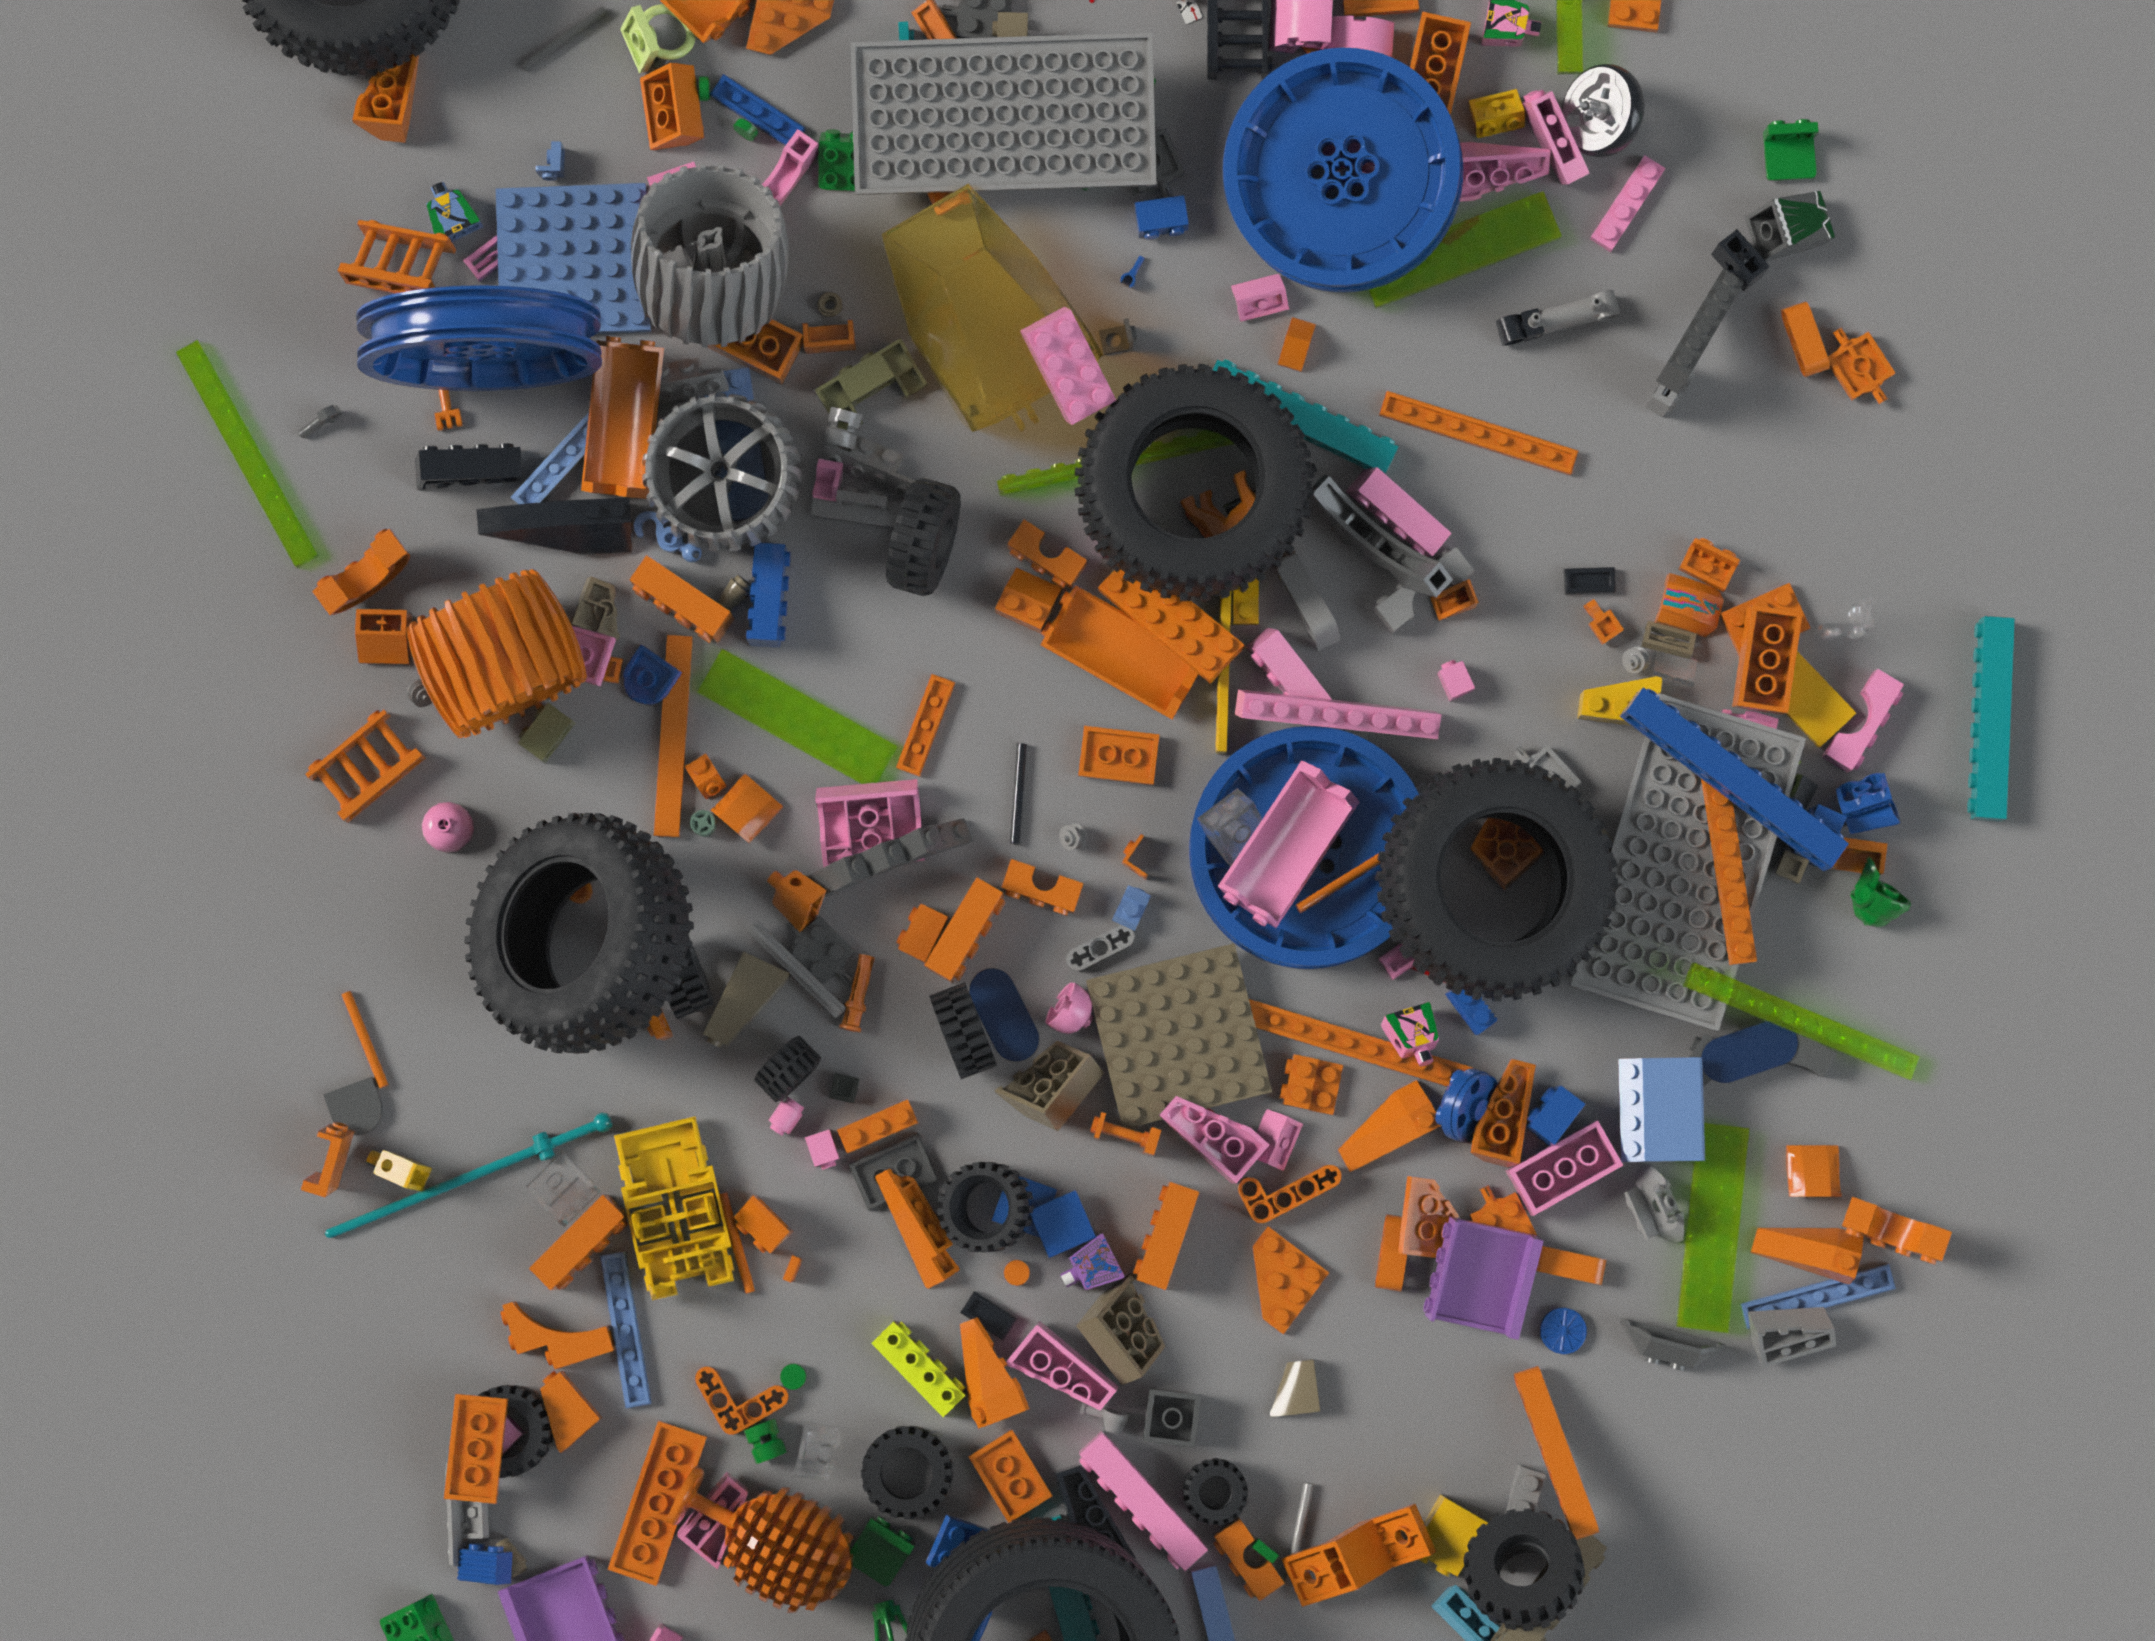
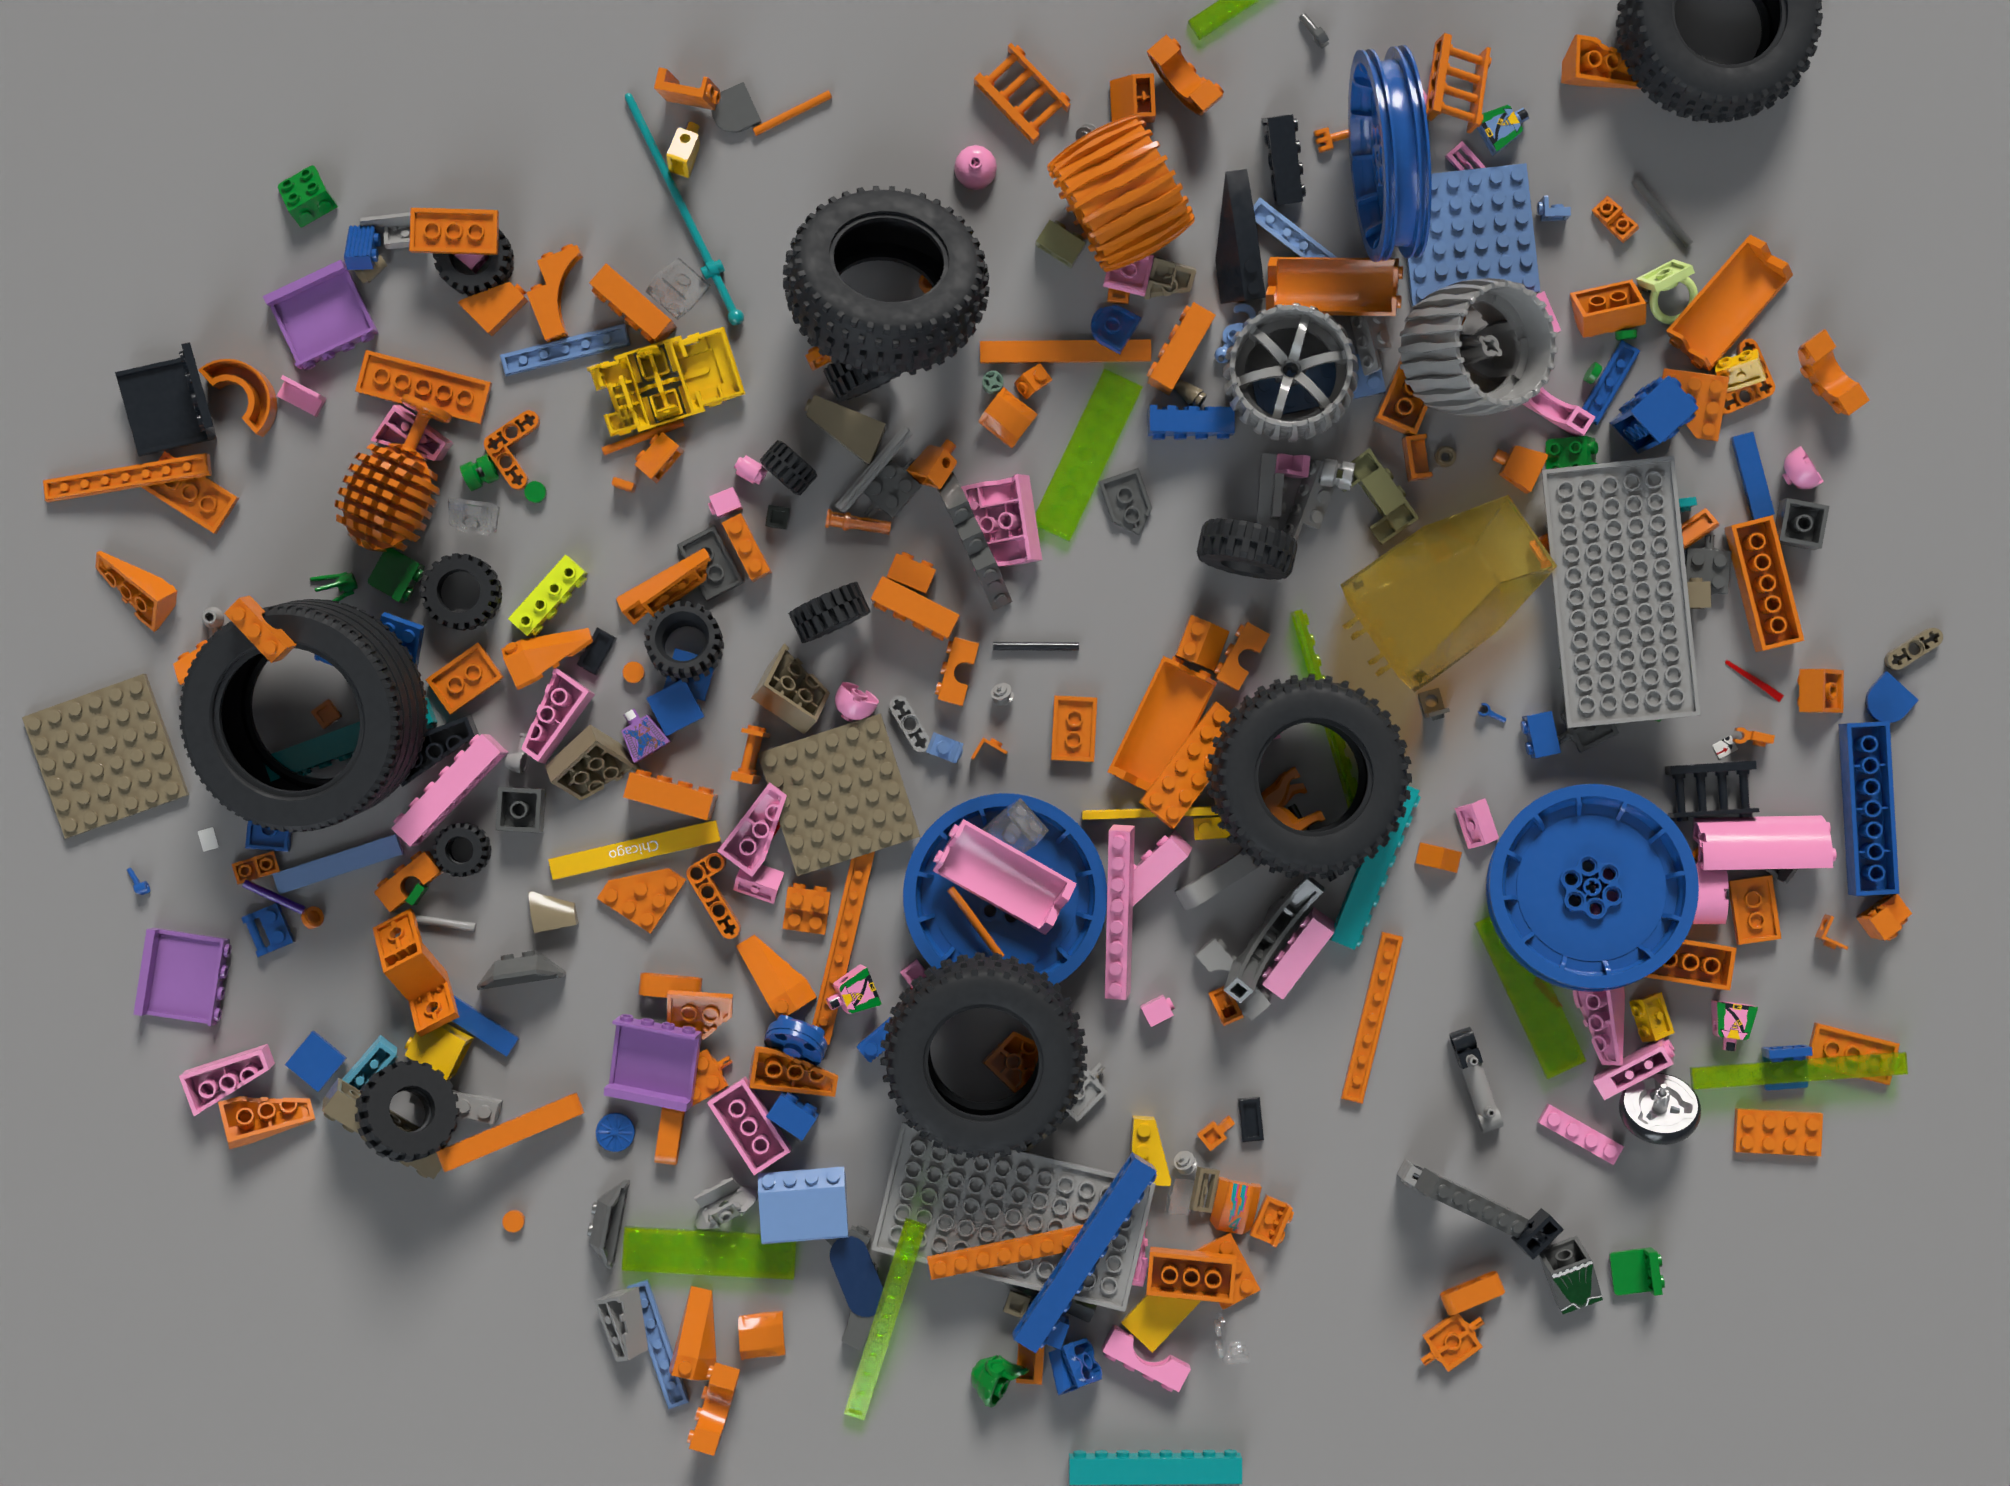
camera: 90 degrees right, 5 degrees up
(568, 92) = (1614, 219): none -> orange slope
(800, 61) = (1654, 414): none -> blue brick
(848, 218) = (1520, 466): none -> orange torso
(854, 676) = (1127, 500): none -> dark grey tile
(925, 725) = (1089, 564): orange tile -> none
(1004, 1014) = (849, 647): dark blue sticker -> none
(1068, 365) = (1401, 661): bright pink brick -> none
(1228, 1285) = (634, 849): none -> yellow tile
(1364, 1431) = (520, 970): none -> dark grey wedge
(1431, 1478) = (484, 1028): none -> blue tile
(1662, 1460) = (513, 1220): none -> orange tile

